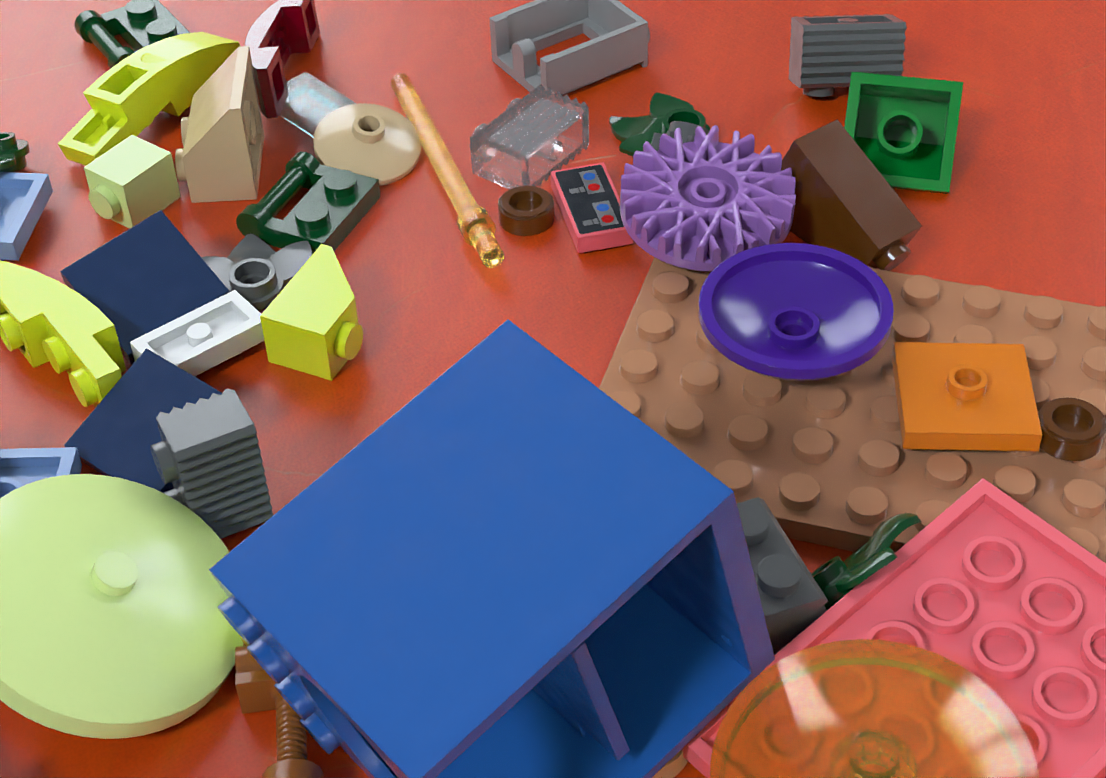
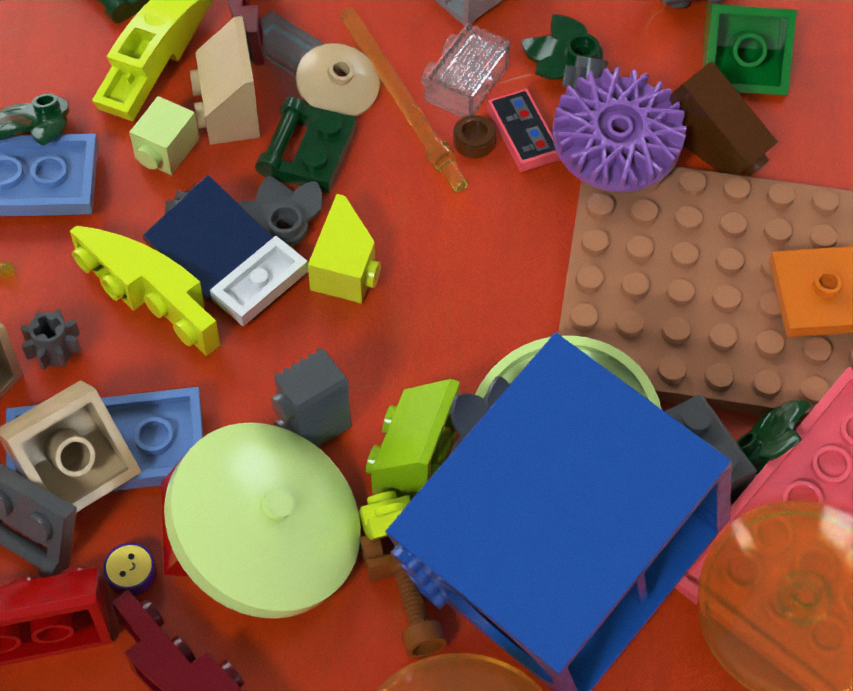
camera: 10 degrees left, 15 degrees up
(124, 424) = (243, 361): dark blue tile -> none
(795, 311) = (707, 219): dark purple dish -> none

